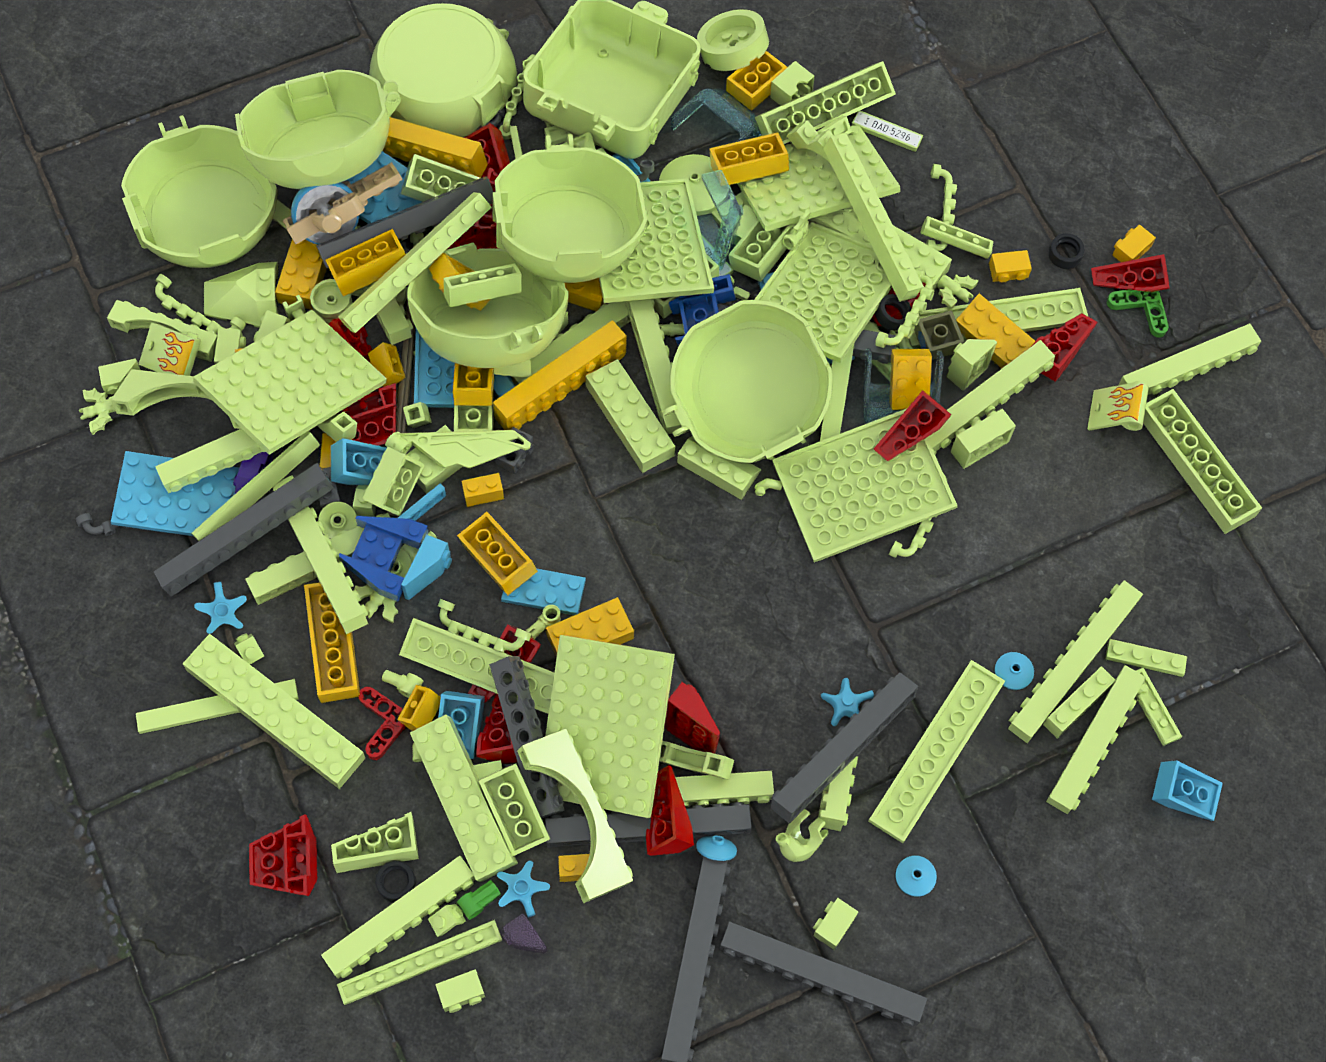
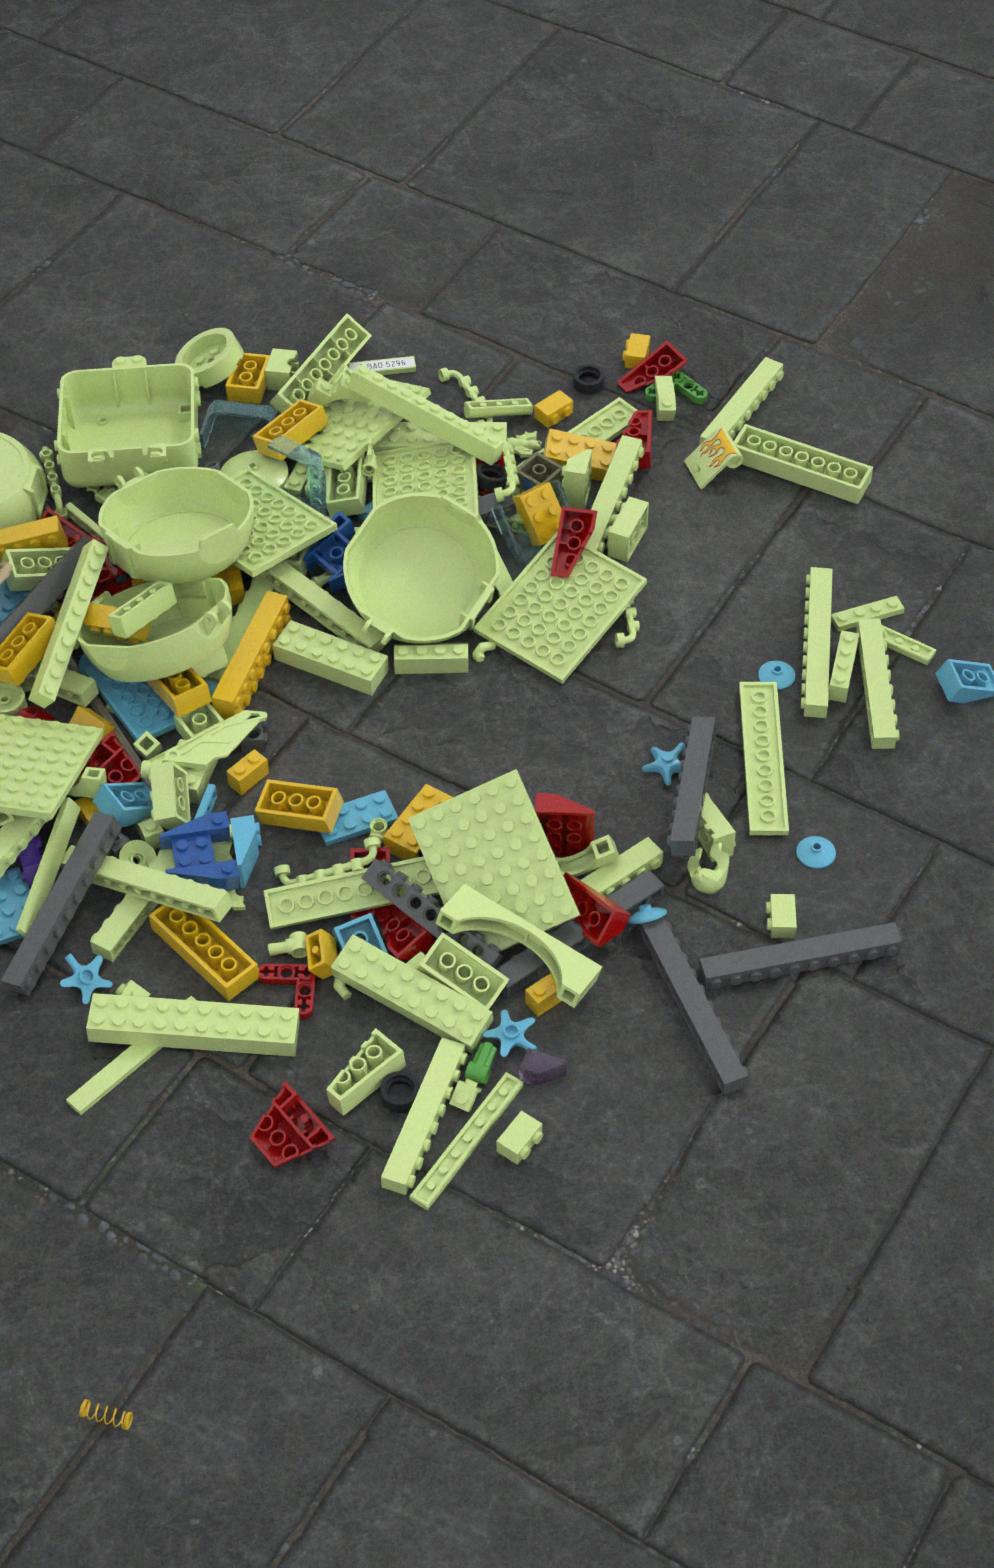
camera: 30 degrees left, 15 degrees down
(1122, 313) = (665, 398): none -> yellowish green slope

